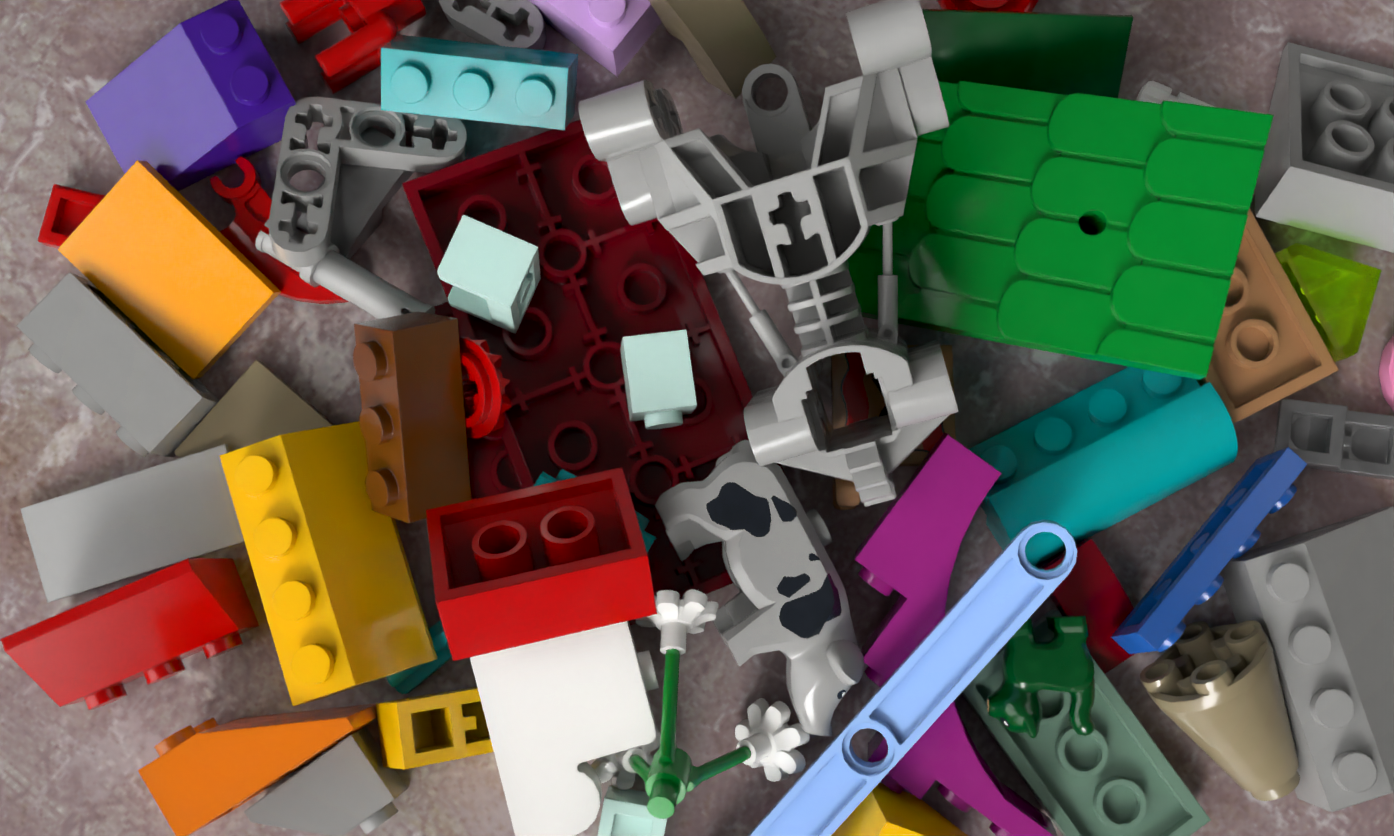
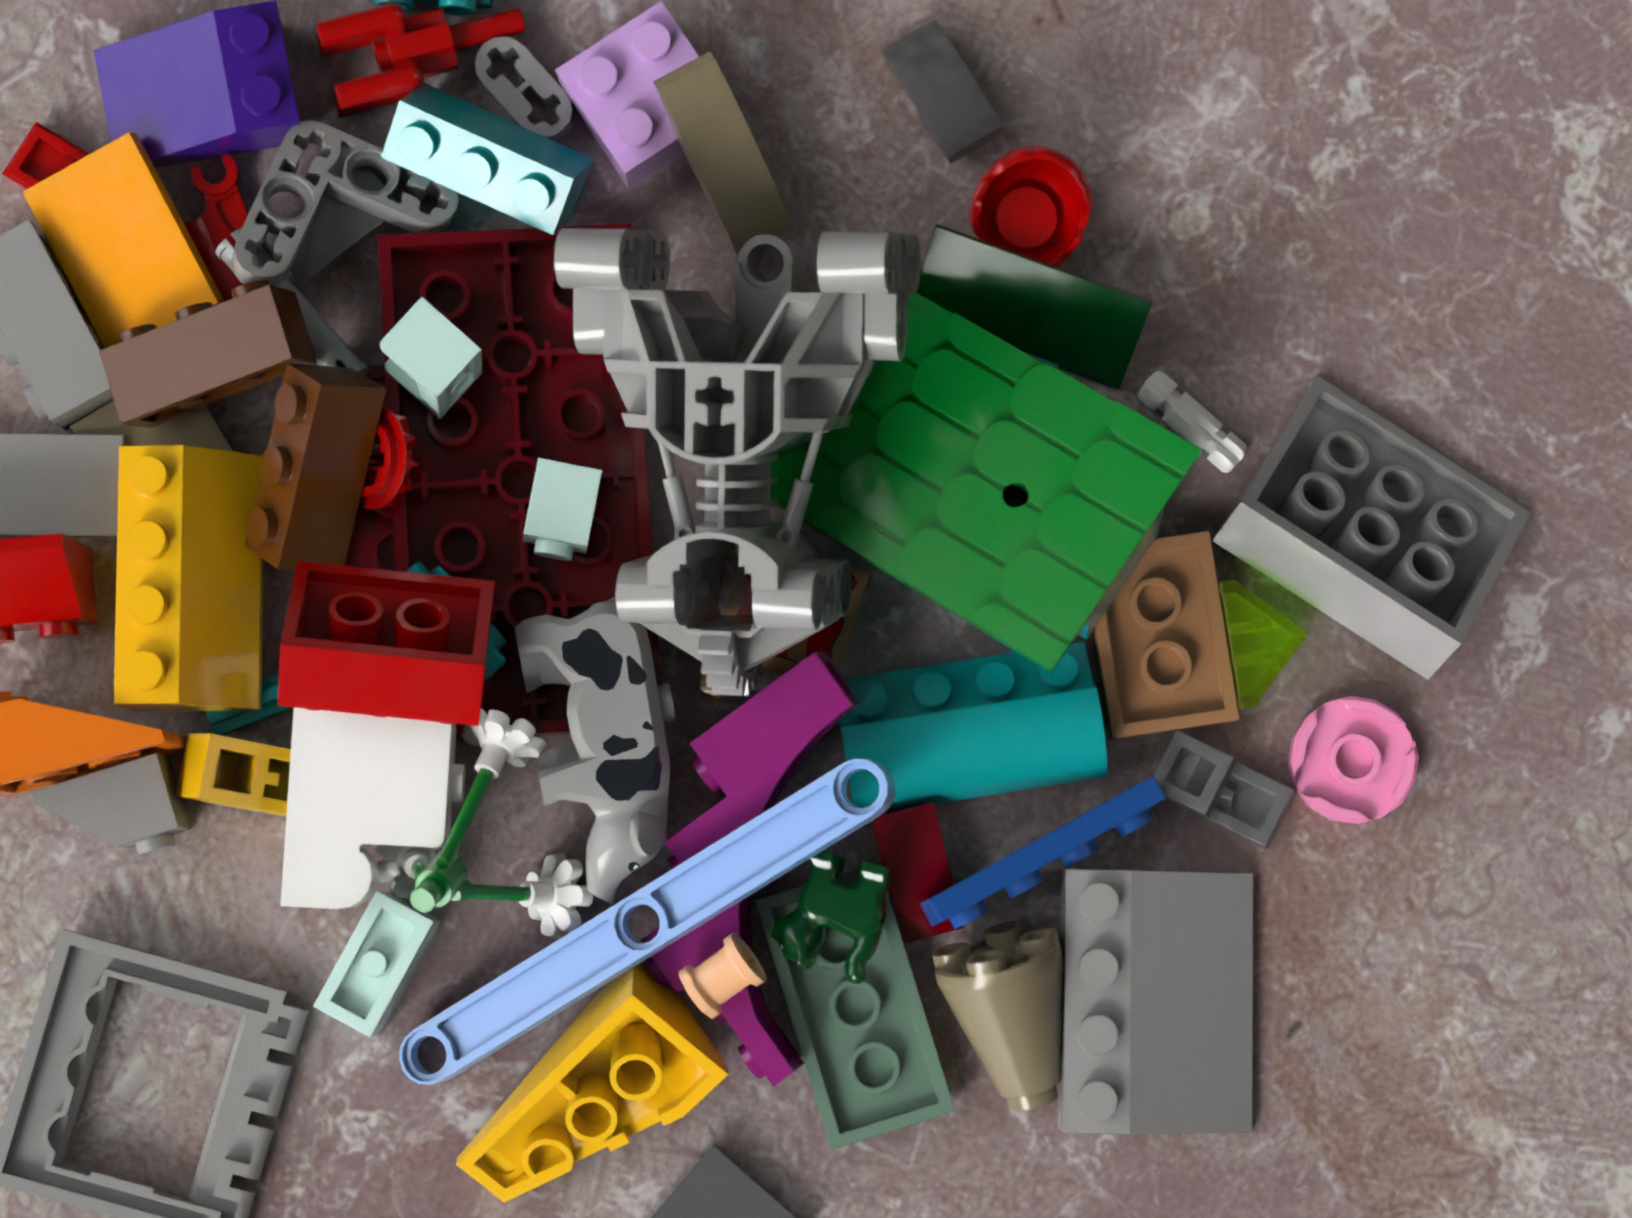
camera: 20 degrees right, 0 degrees up
(275, 343) = (206, 354): none -> reddish brown brick
(965, 773) = (722, 975): none -> light nougat bush

